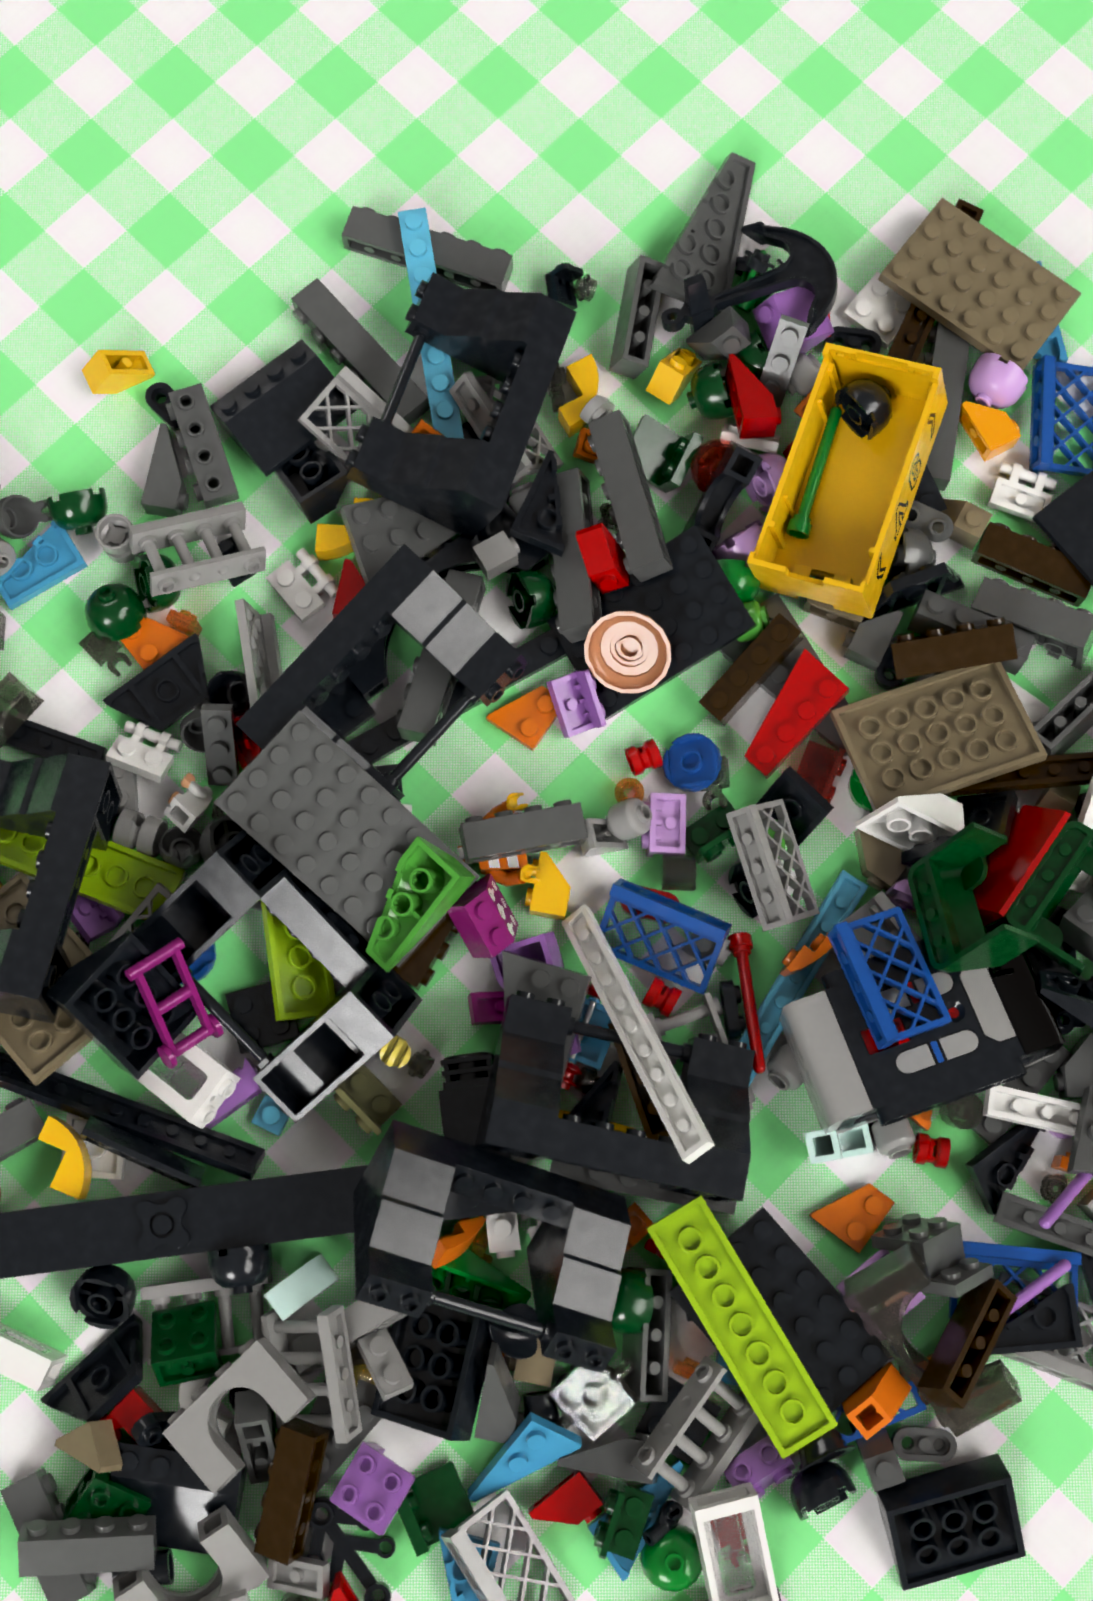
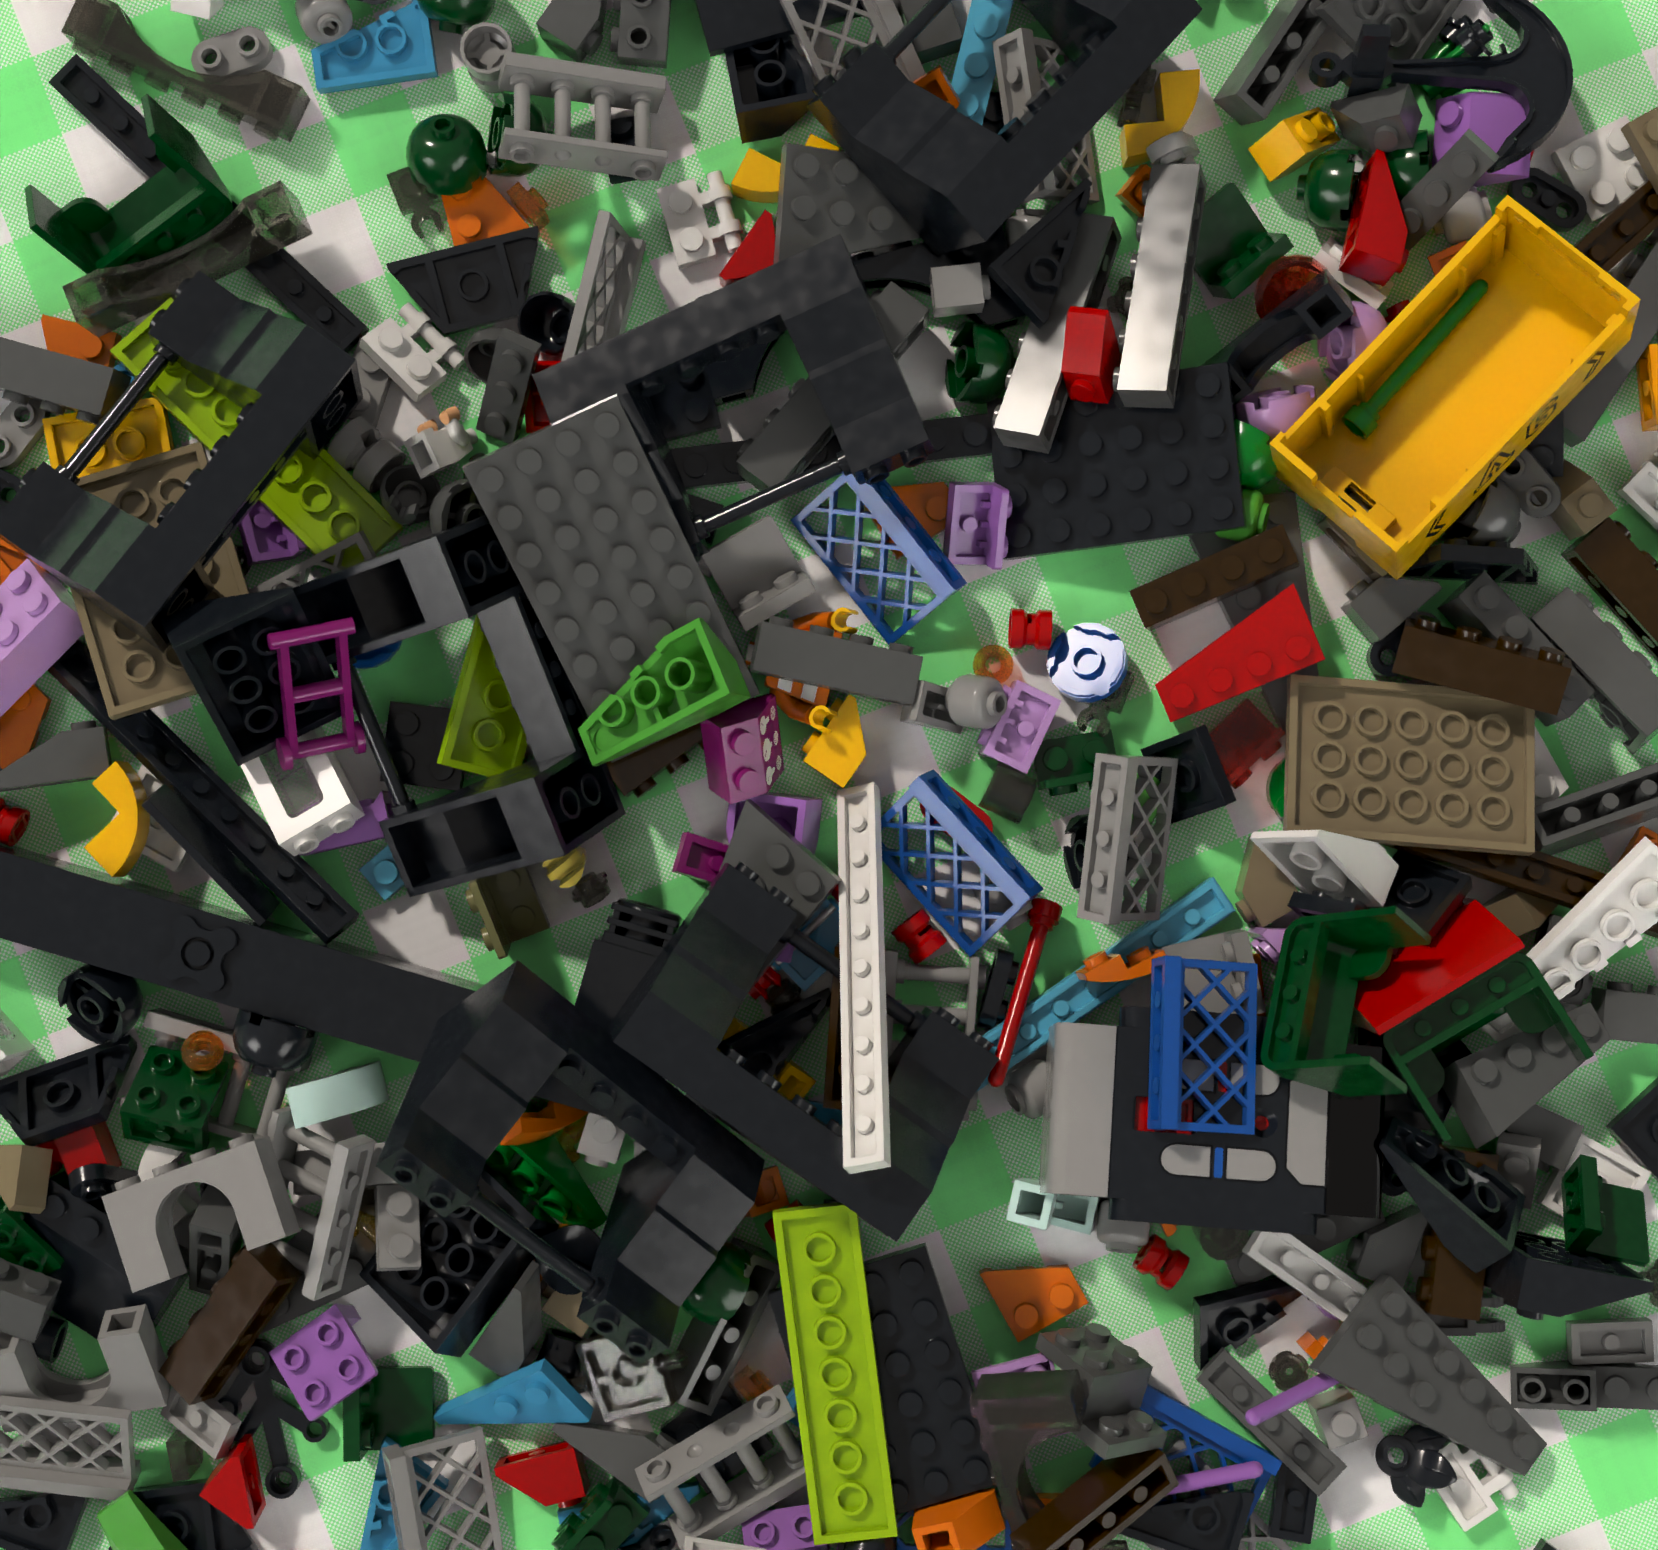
camera: 25 degrees right, 10 degrees up
(188, 1291) = (202, 1041): none -> clear orange plate
(442, 798) = (757, 573): none -> light grey bracket
(534, 730) = (908, 538): none -> blue fence
(627, 652) = (1067, 491): hat -> none
(865, 407) = (1520, 299): black cylinder -> none

